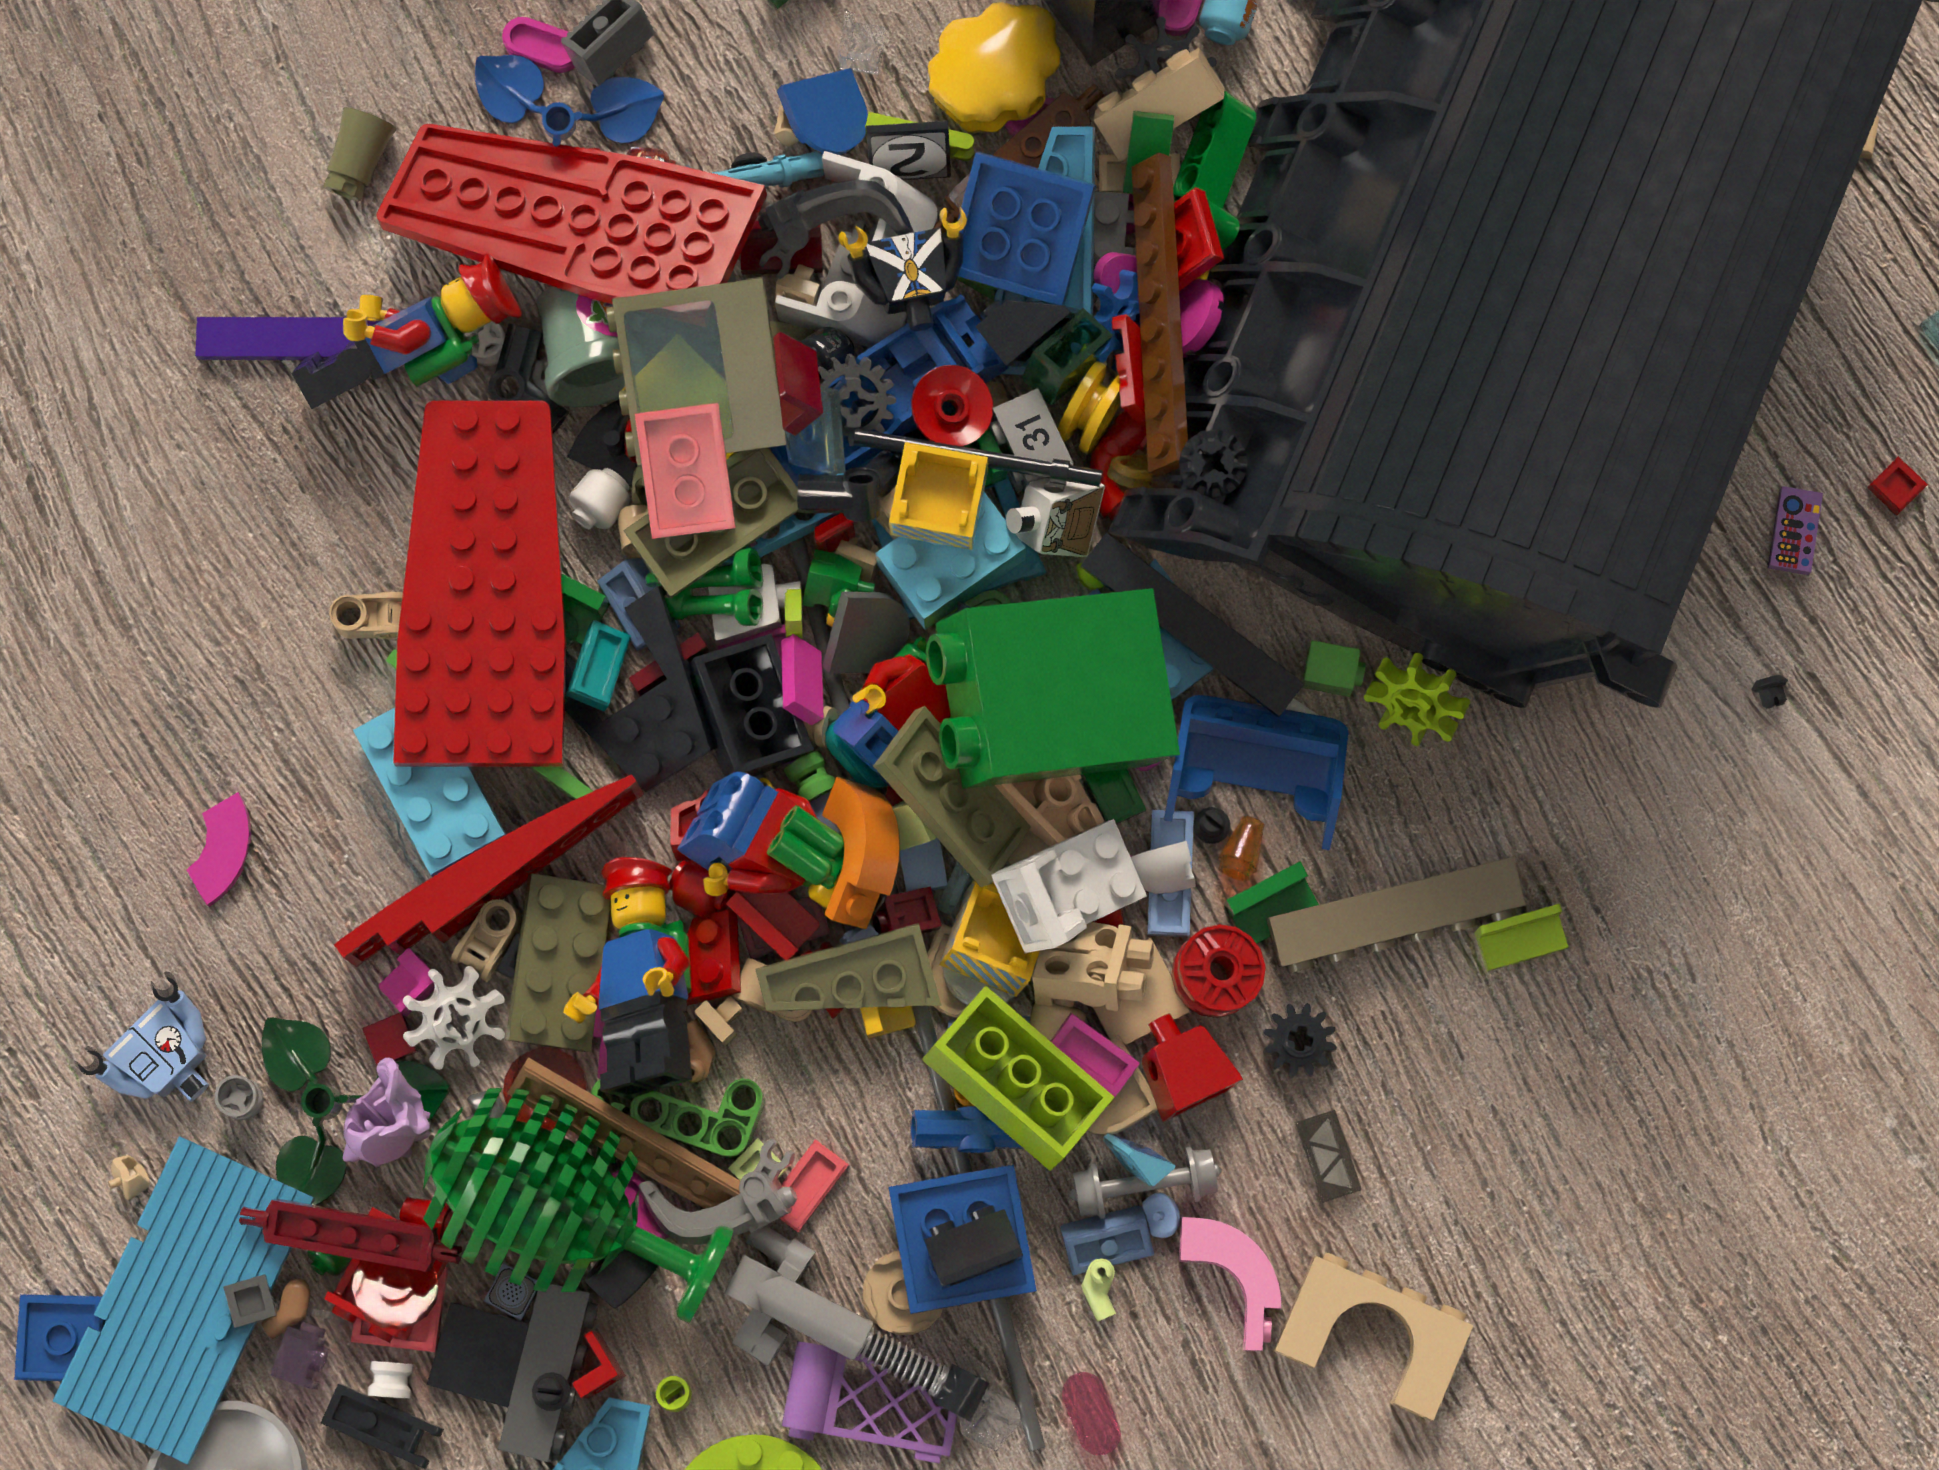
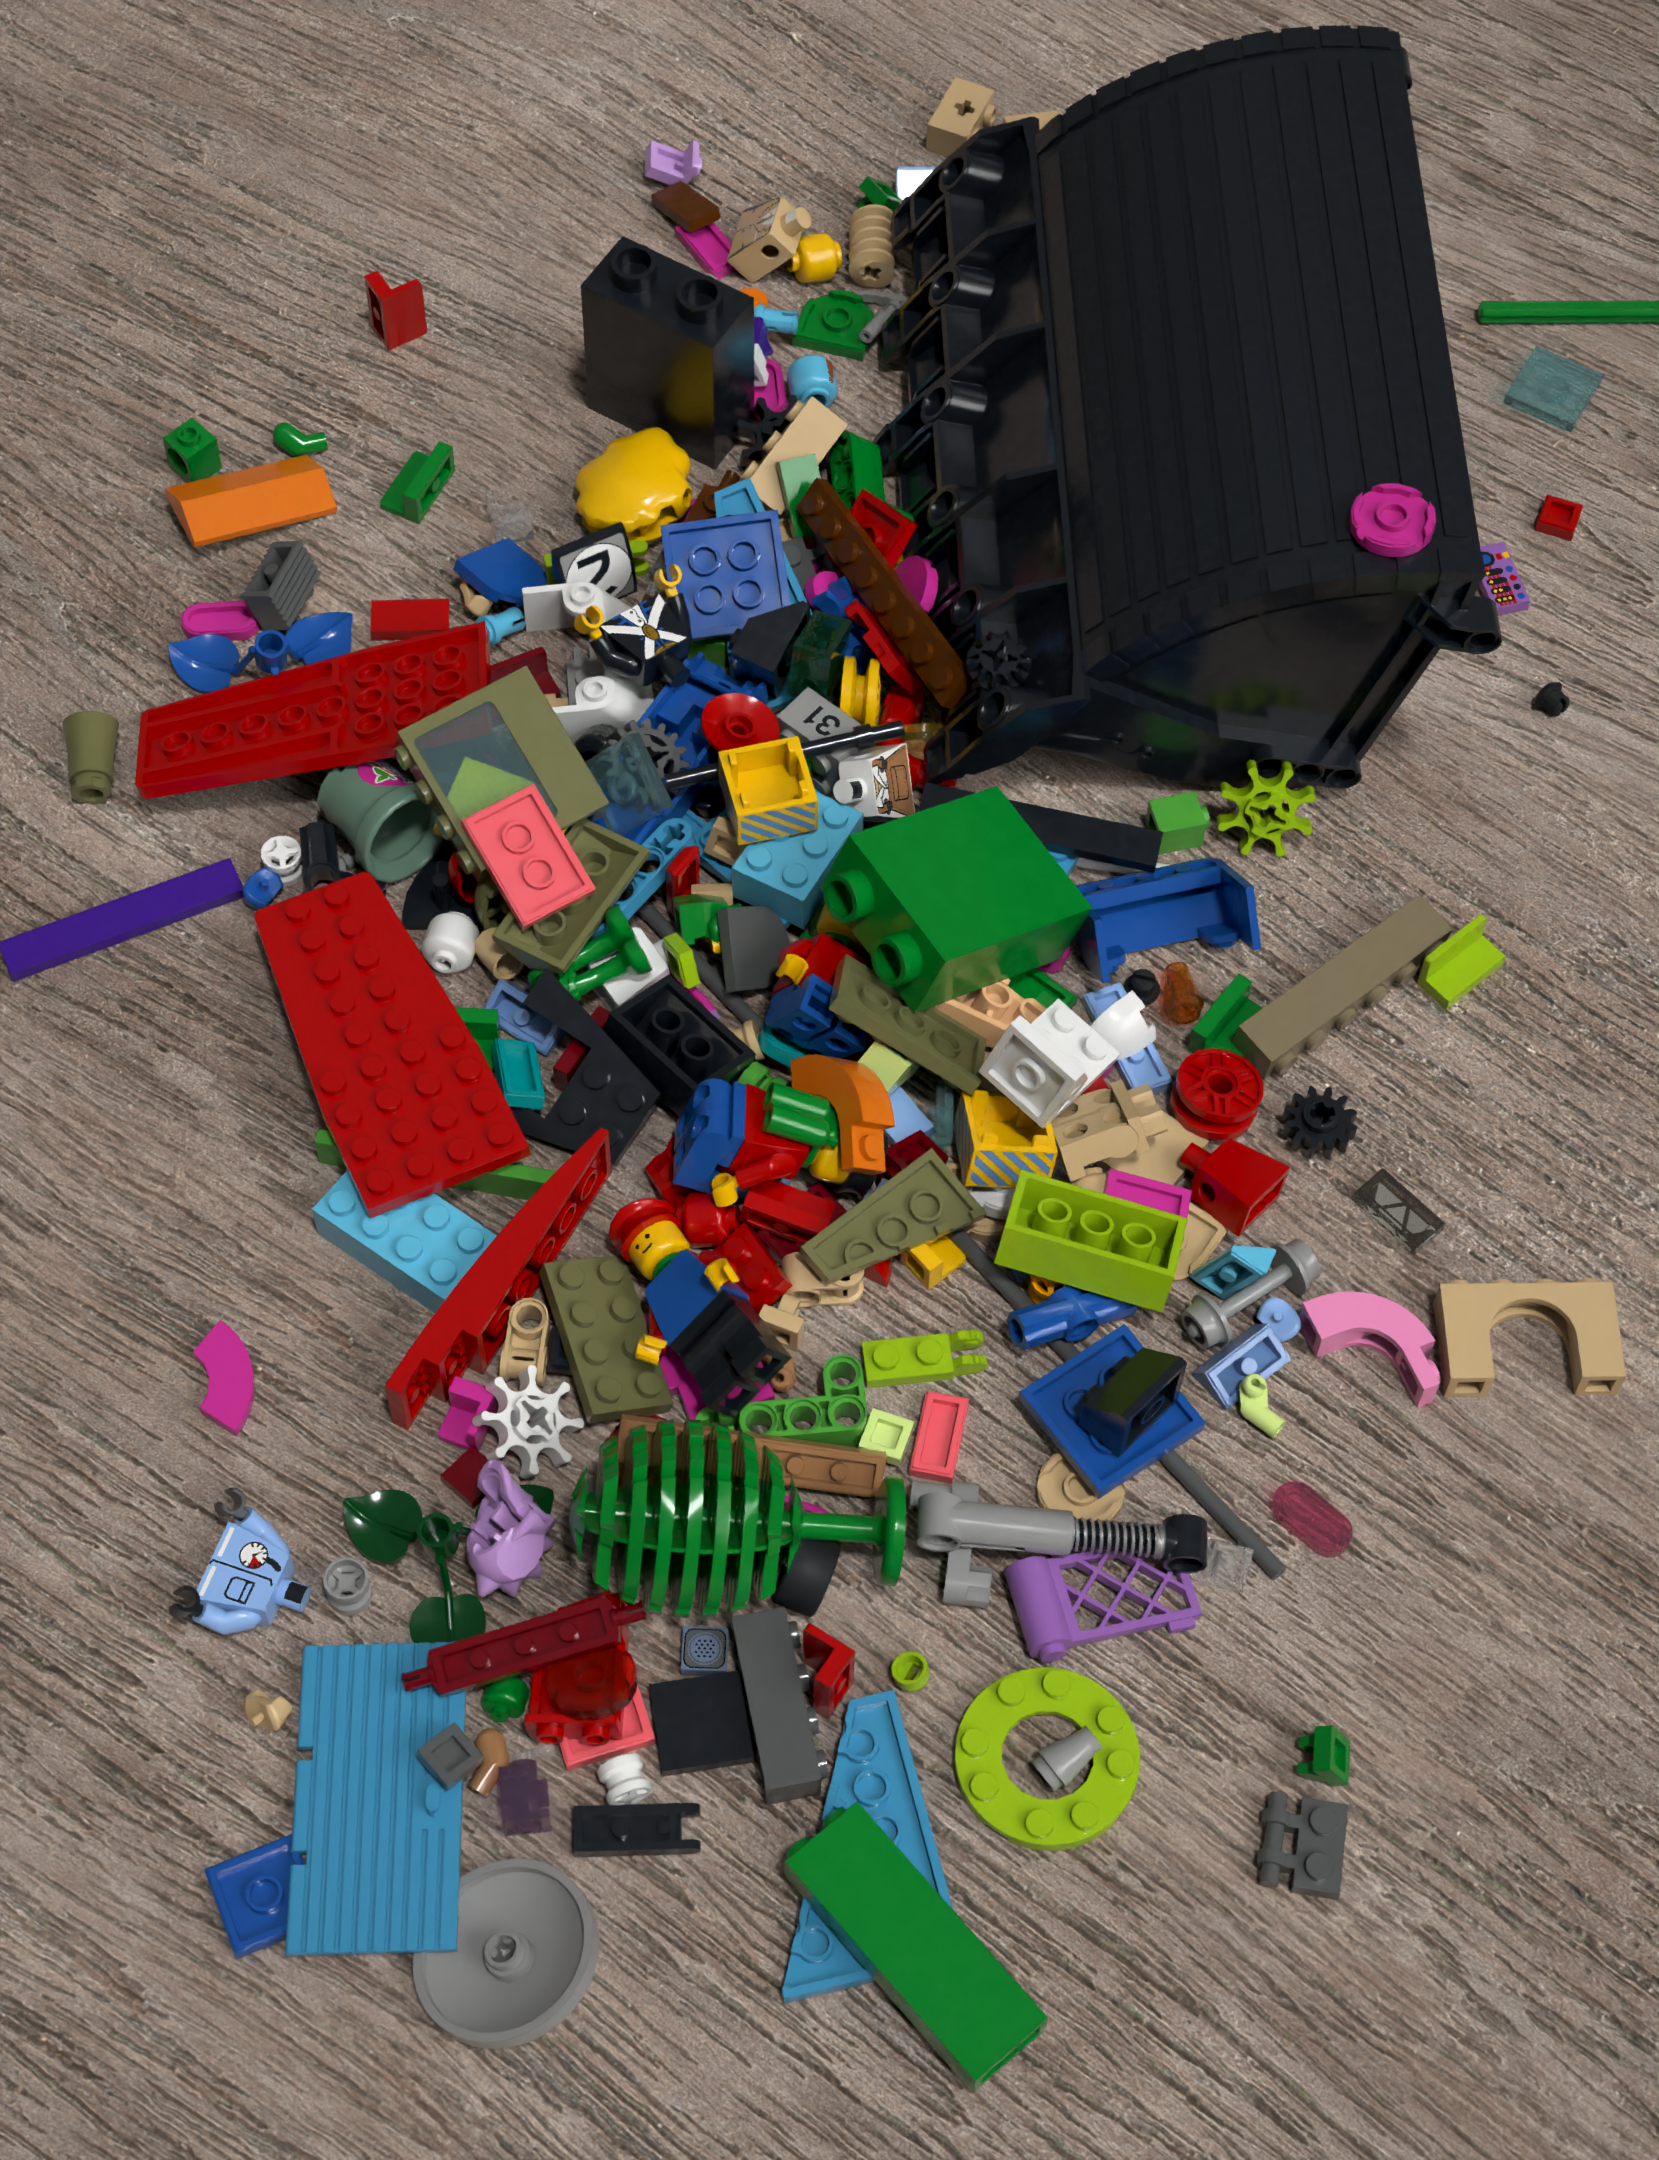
camera: 30 degrees left, 20 degrees down
(374, 617) = (284, 1120): tan piece -> none
(422, 337) = (223, 860): piece -> none
(551, 1391) = (793, 1709): black piece -> none
(719, 119) = (408, 618): none -> red tile
(757, 1205) = (906, 1456): light grey piece -> none
(797, 383) = (599, 745): dark red panel -> none
(802, 679) = (716, 1001): dark pink tile -> none
(804, 210) = (524, 639): black piece -> none
(824, 1104) = (921, 1358): none -> lime hinge
(853, 493) = (689, 821): black piece -> none
(1598, 558) = (1392, 532): none -> dark pink tile

